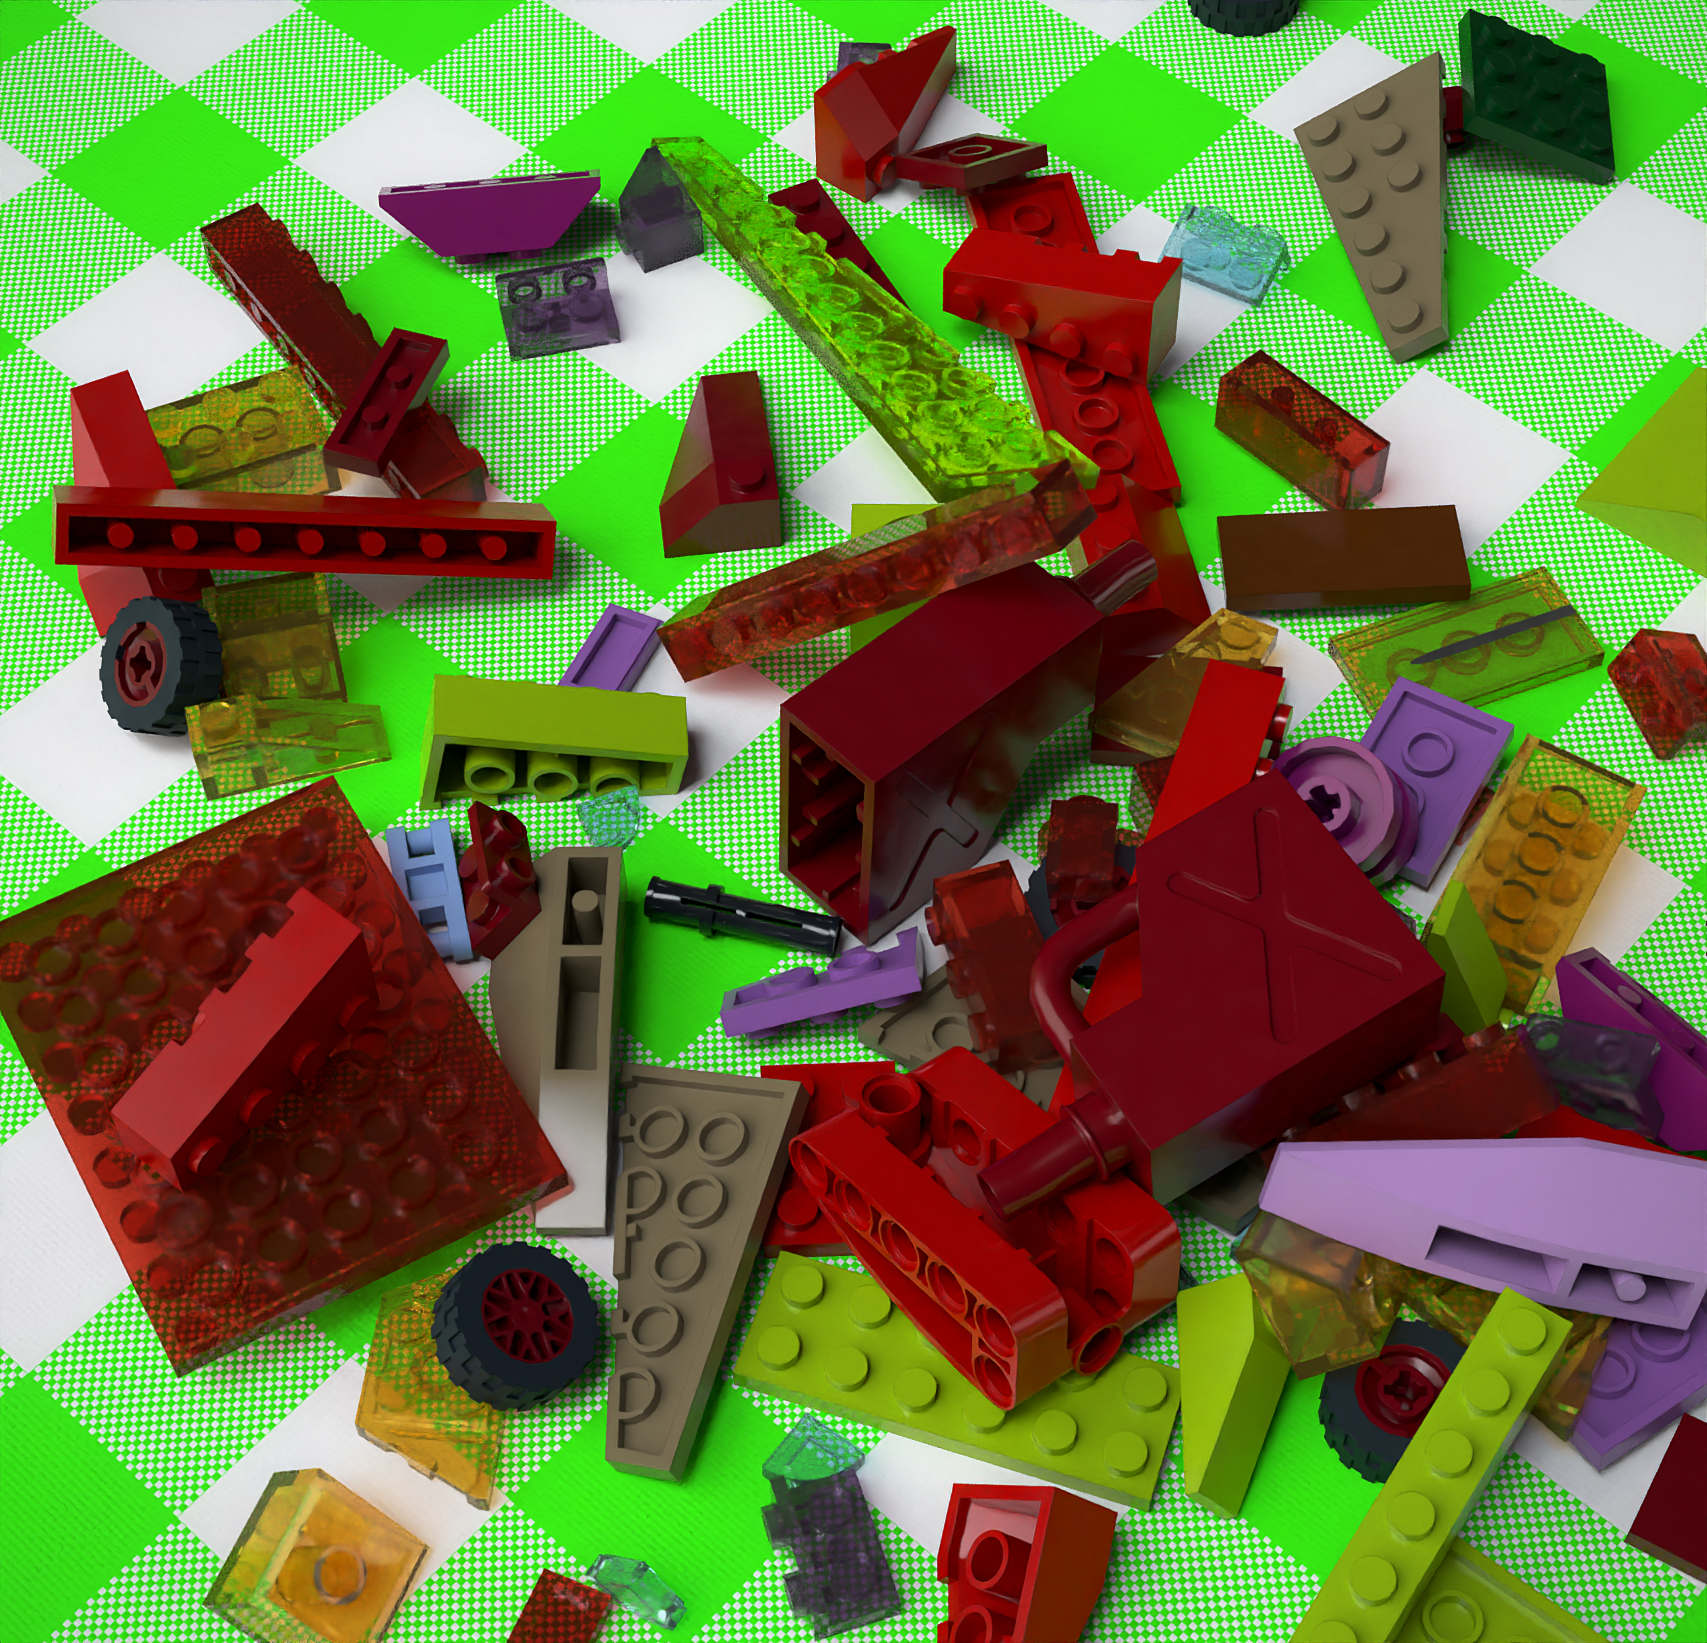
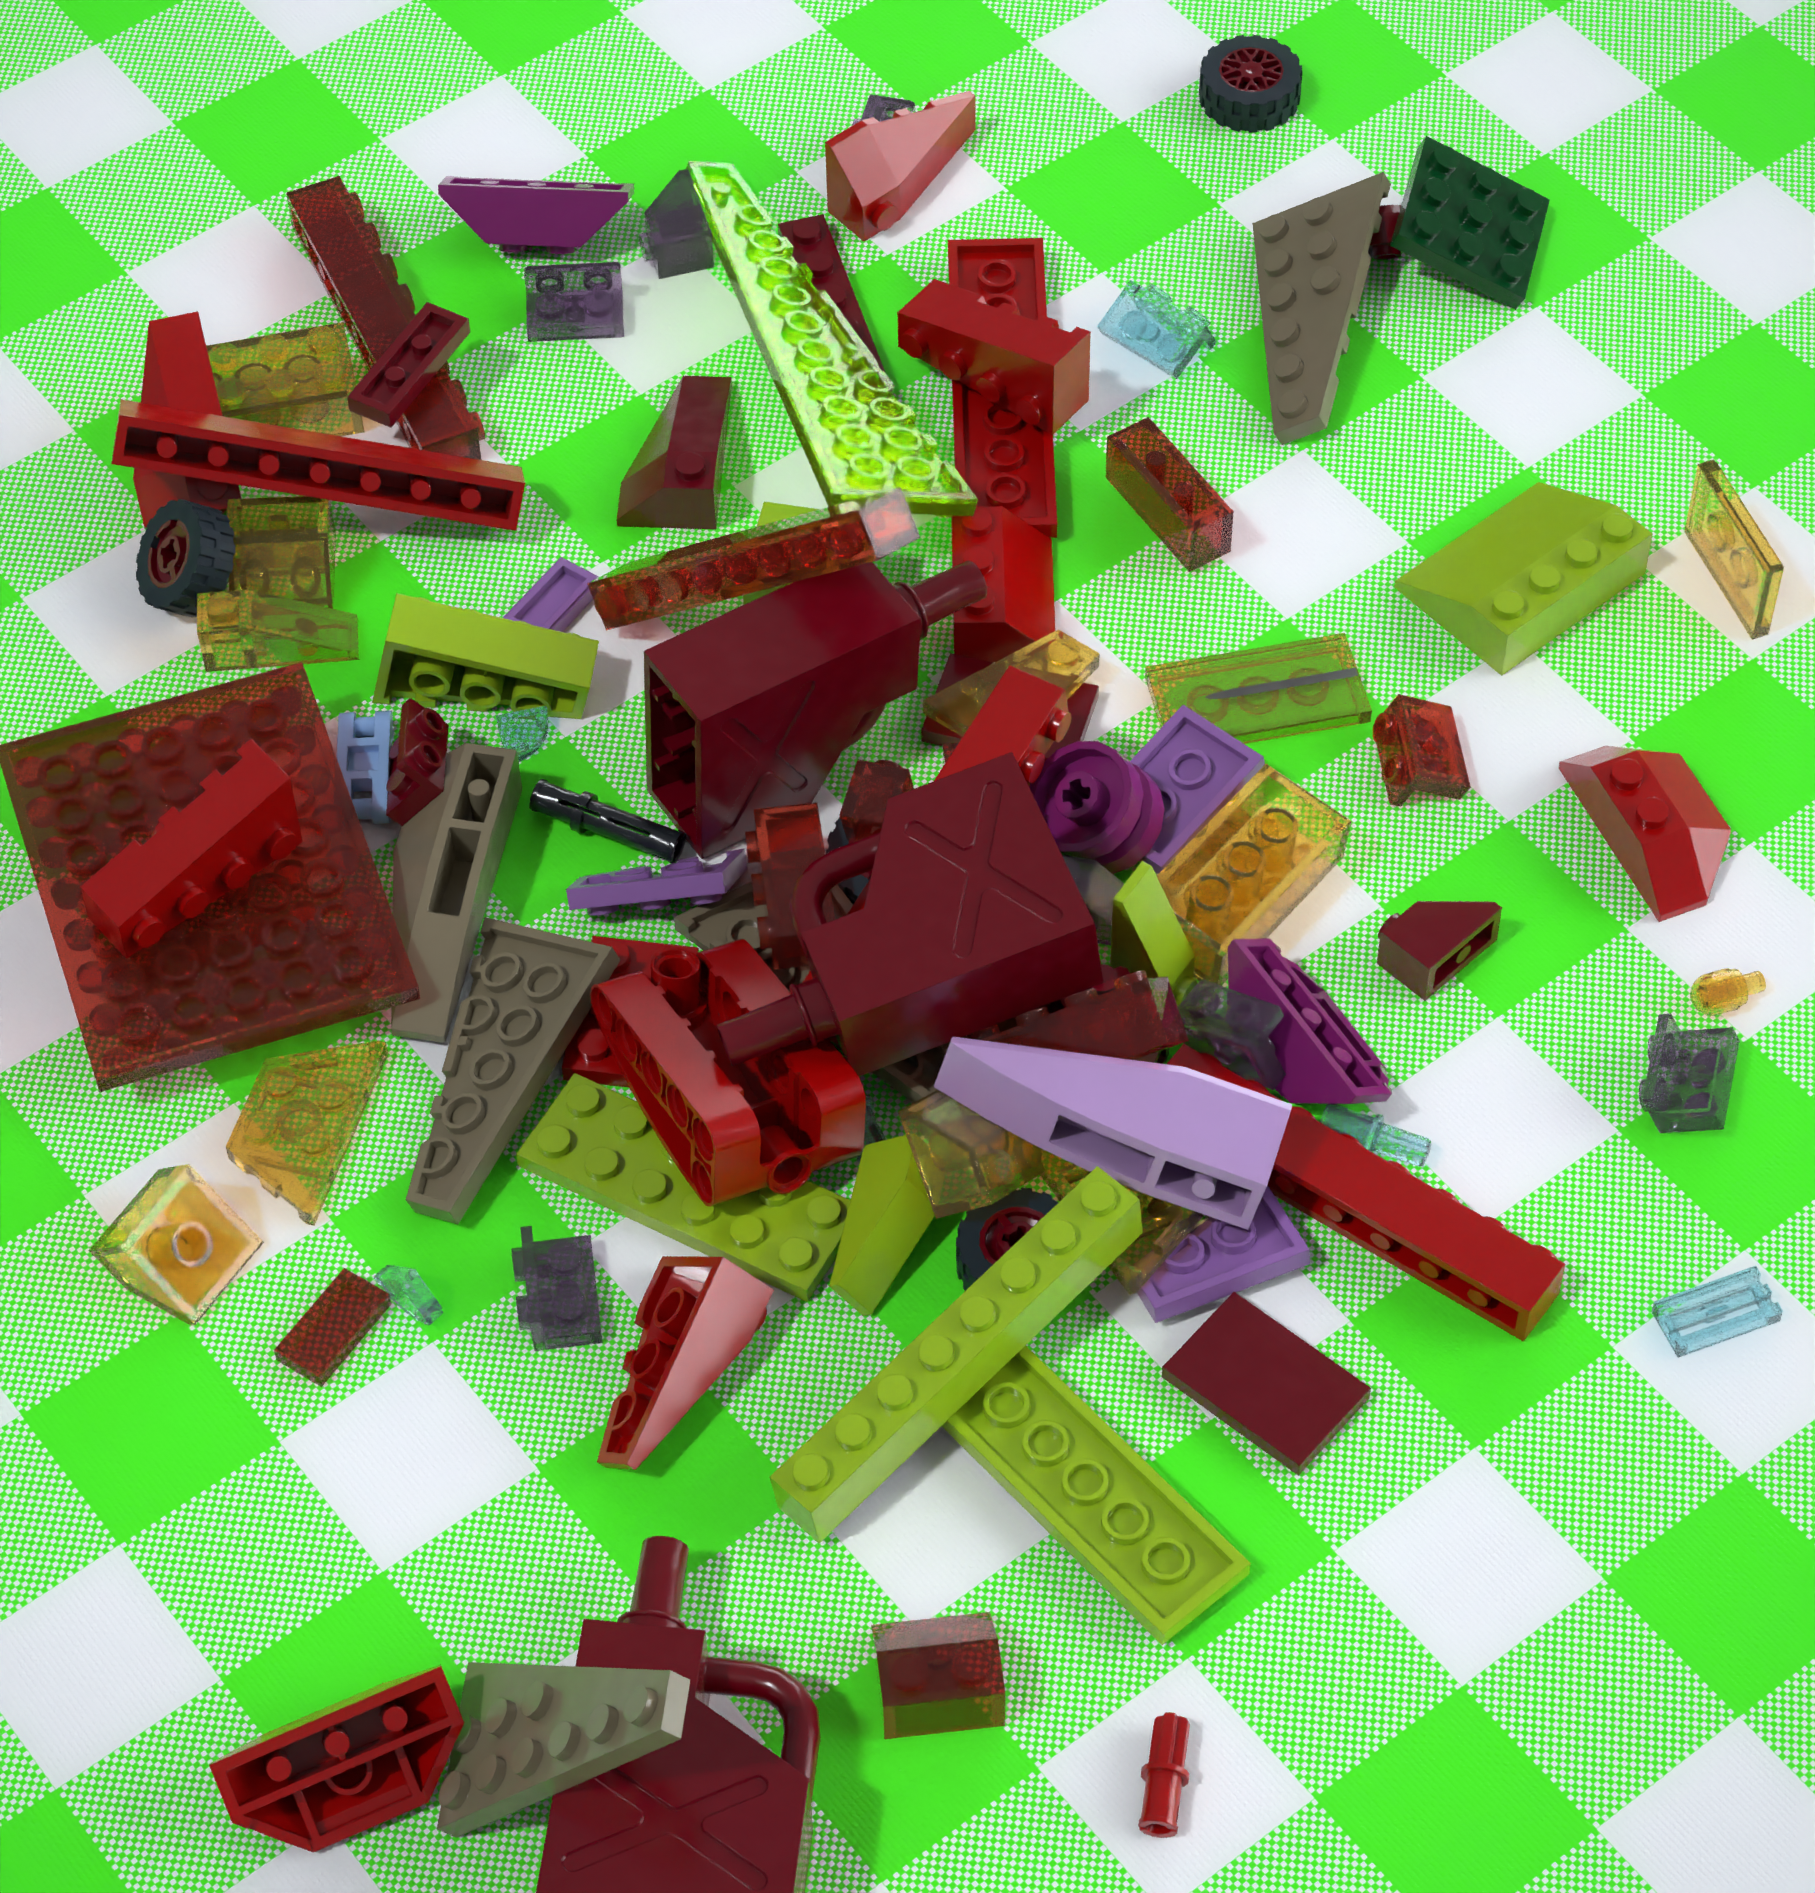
camera: 10 degrees right, 0 degrees up
(547, 1333) = (362, 1068): black wheel -> none
(812, 1453) = (562, 1219): clear light blue tile -> none
(971, 163) = (957, 218): dark red plate -> none
(1342, 558) = (1175, 603): reddish brown tile -> none

